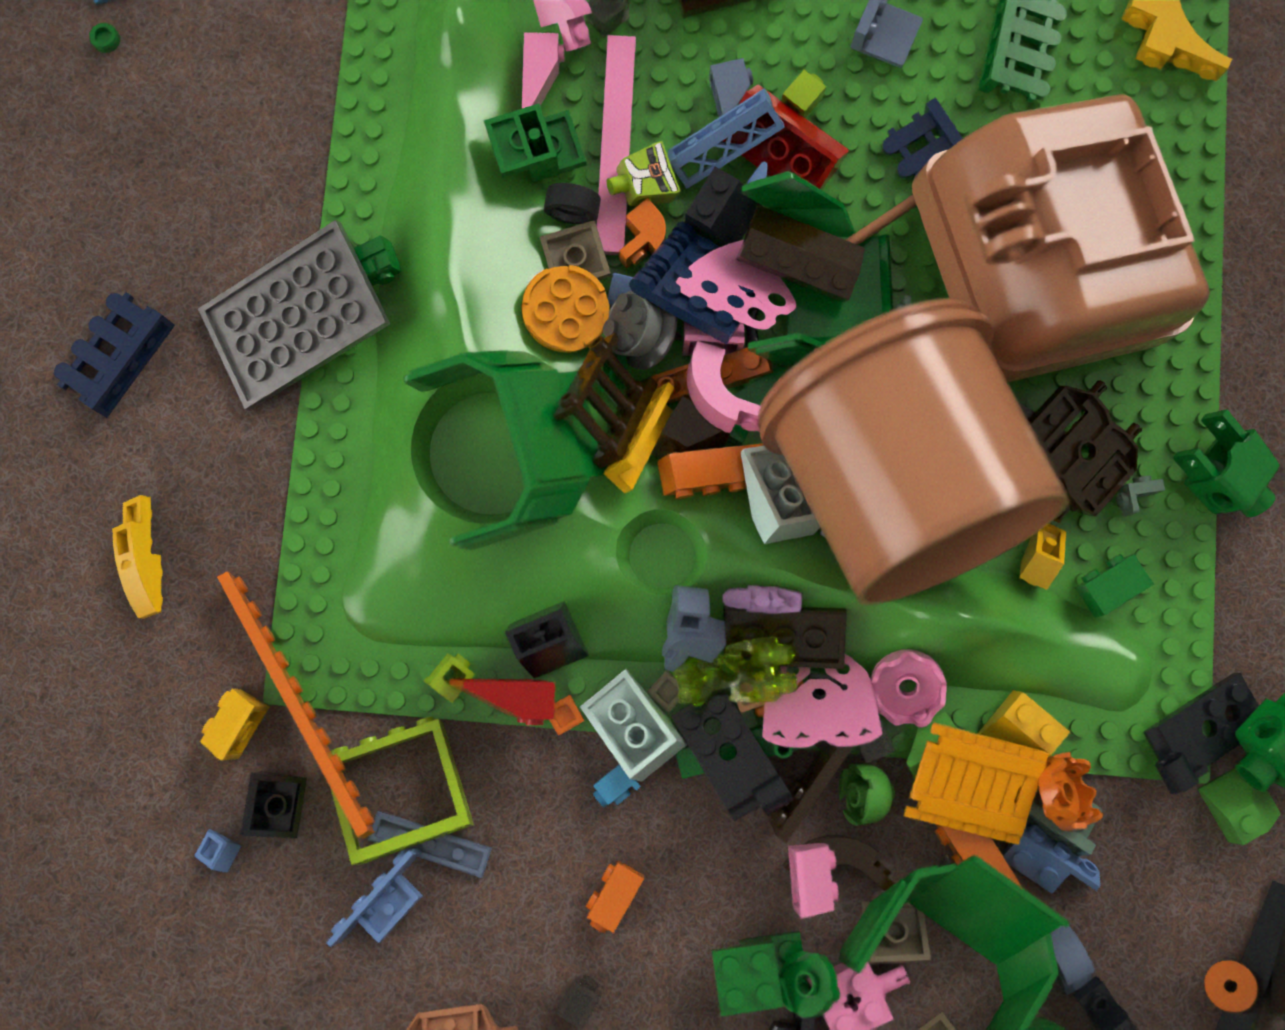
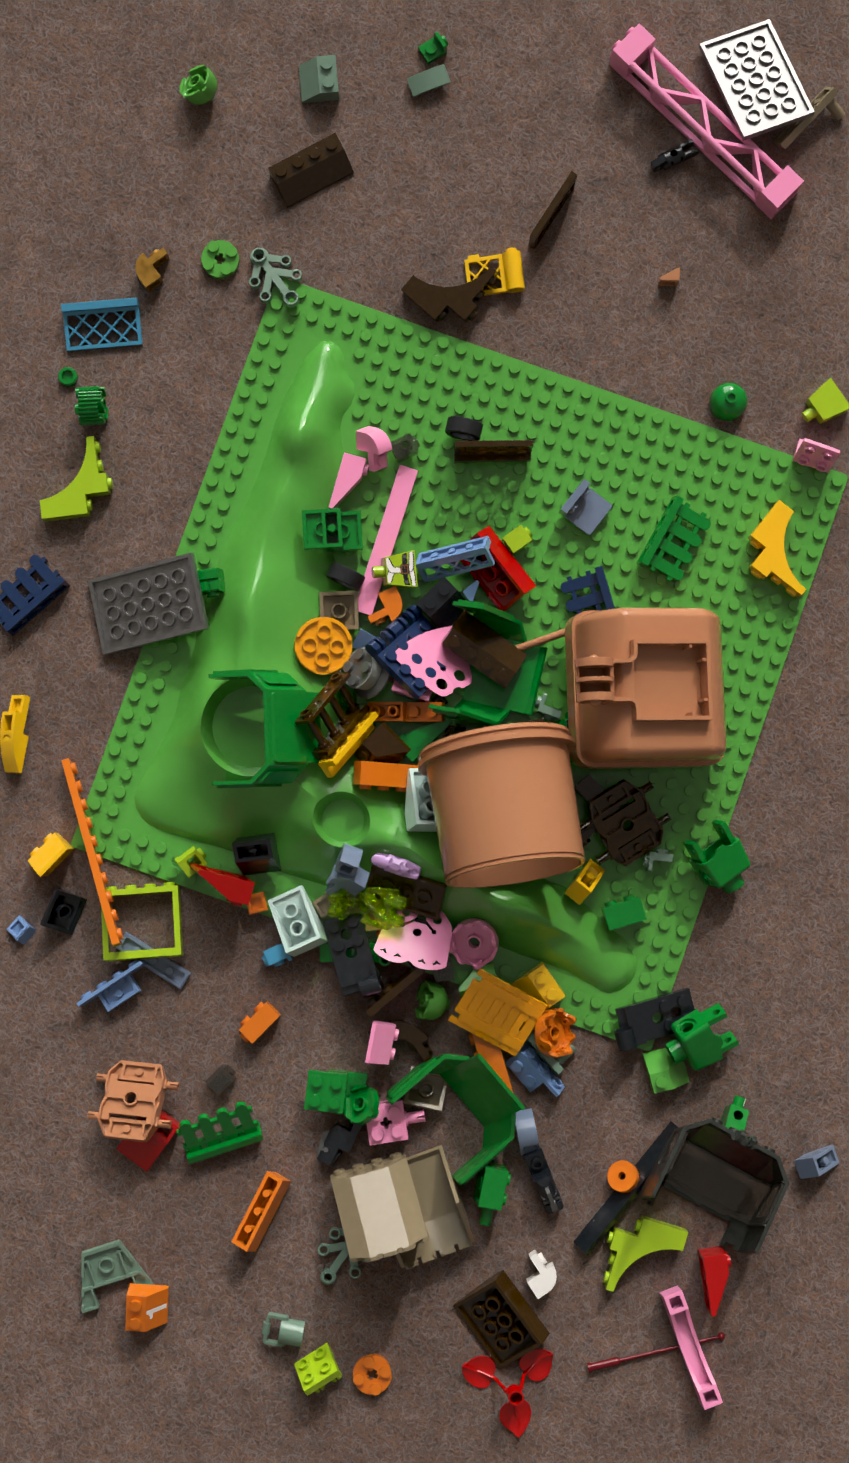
camera: 15 degrees right, 5 degrees up
(144, 62) = (91, 405): none -> green brick
(153, 196) = (89, 482): none -> lime arch
(712, 397) = (397, 726): bright pink arch -> none
(729, 84) = (471, 521): sand blue slope -> none

